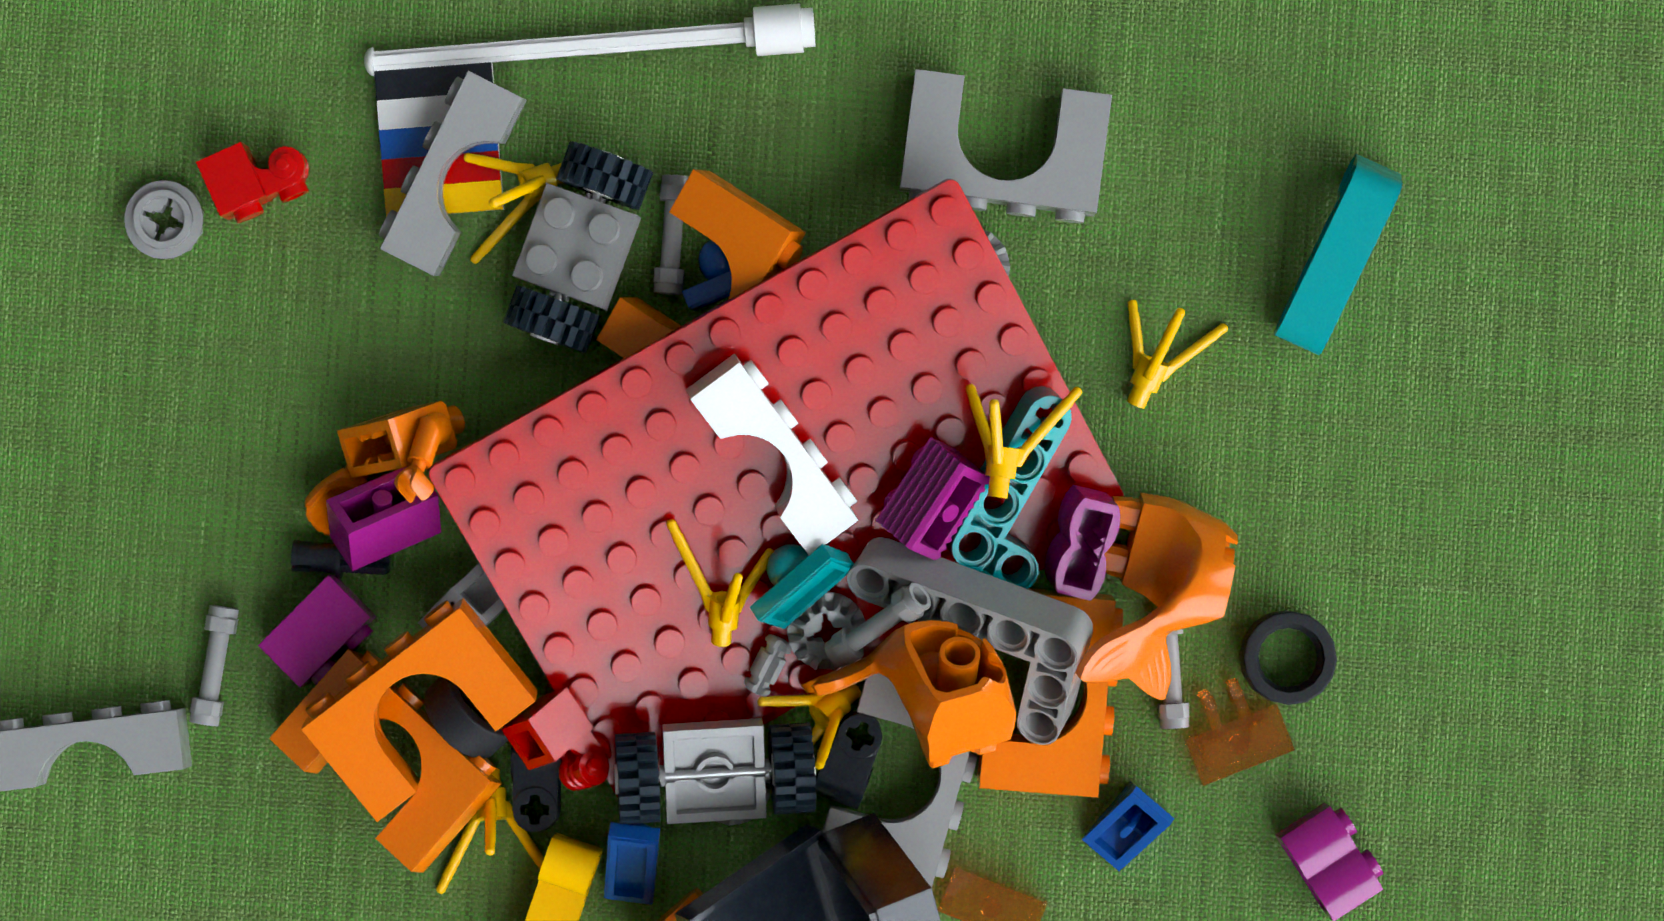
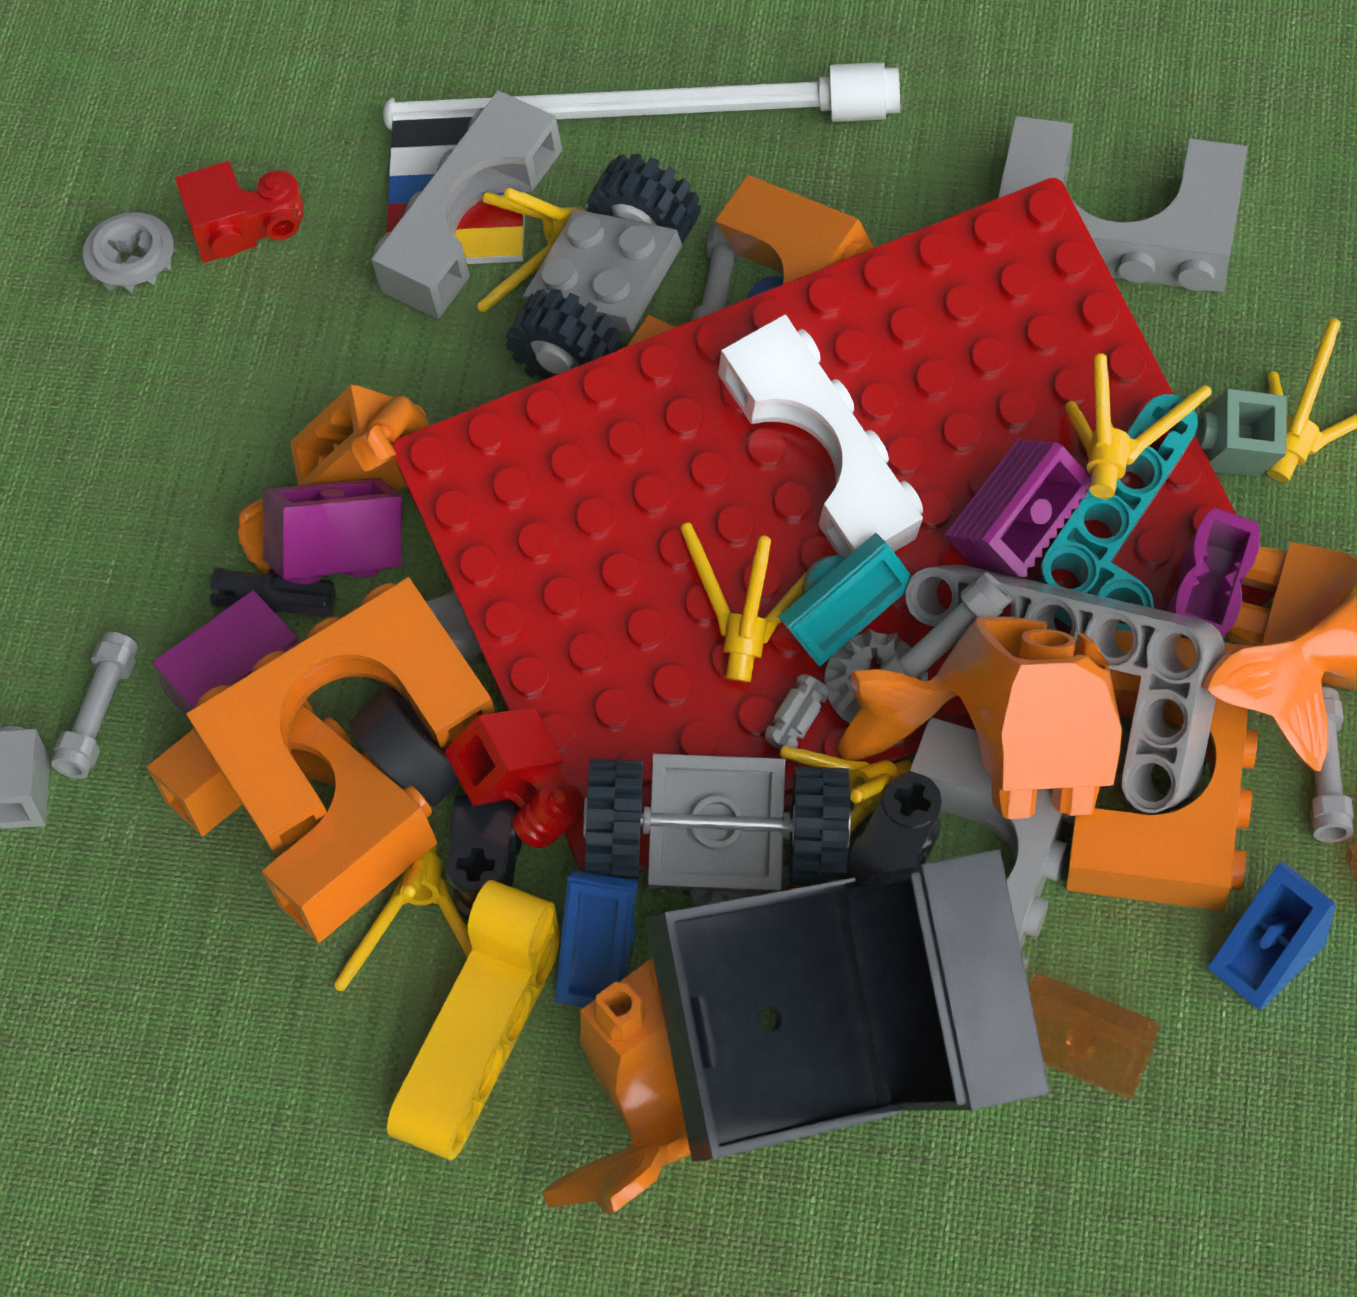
camera: 10 degrees right, 30 degrees down
(1108, 383) = (1243, 432): none -> sand green brick

